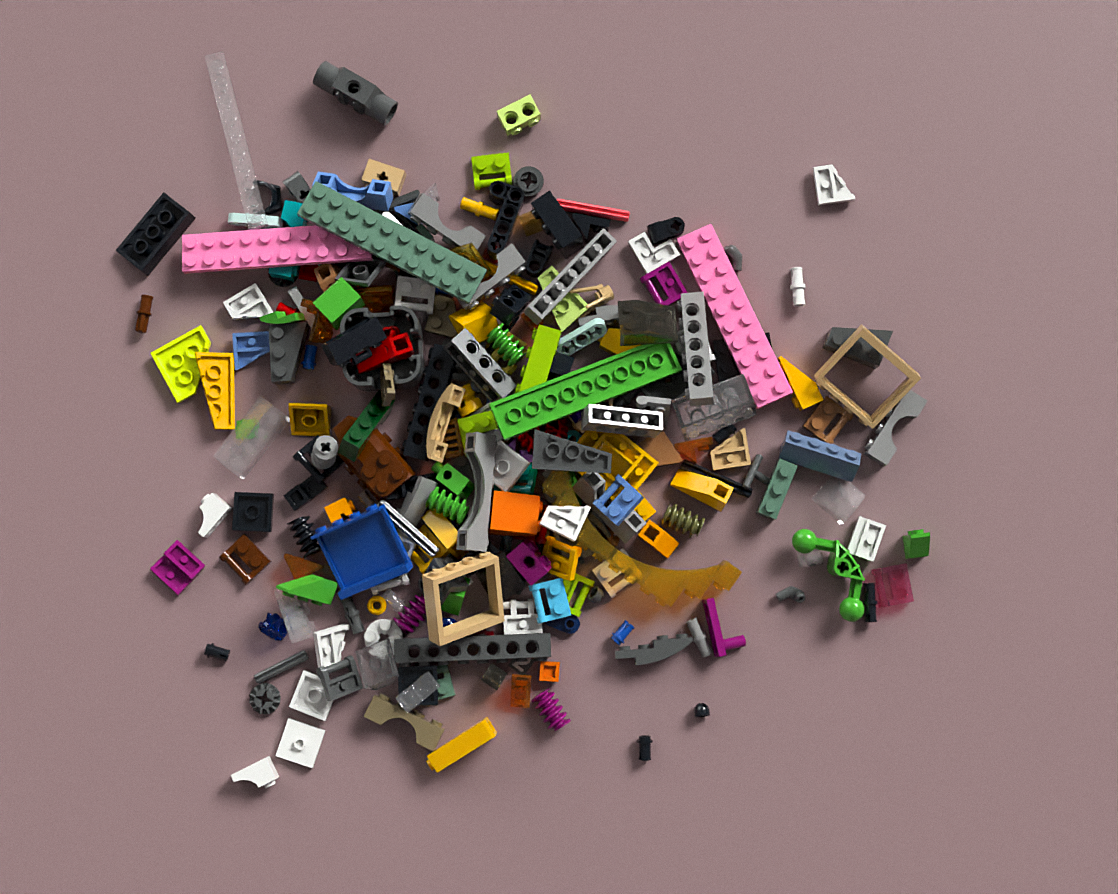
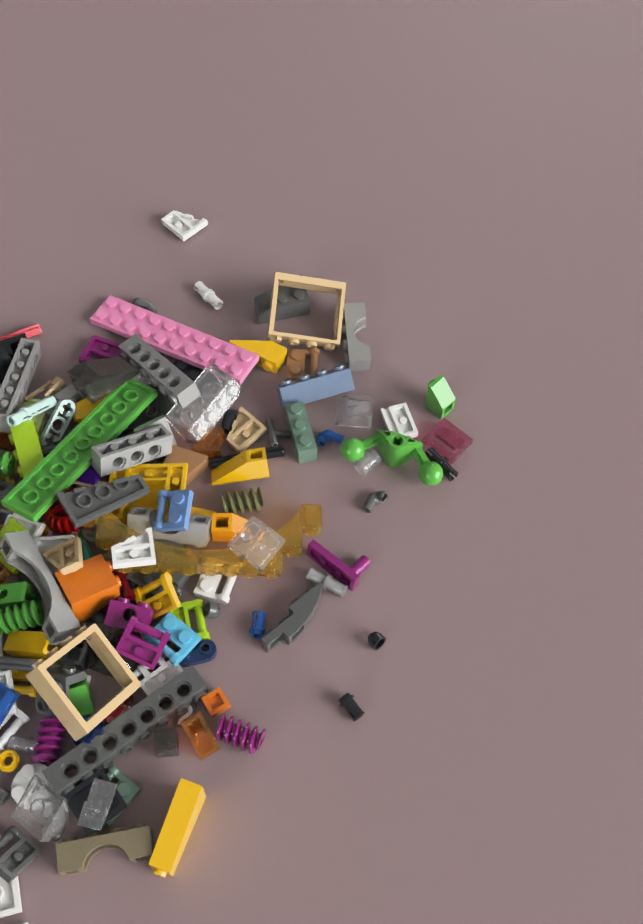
camera: 40 degrees left, 25 degrees down
(511, 482) = (66, 556): none -> tan wing
(519, 595) = (140, 649): none -> magenta plate
(558, 322) = (26, 413): none -> light aqua pin
(651, 257) = (76, 341): white plate -> none
(663, 231) = (76, 319): black piece -> none
(664, 575) = (256, 543): none -> clear slope
(792, 506) = (327, 436): none -> blue arm

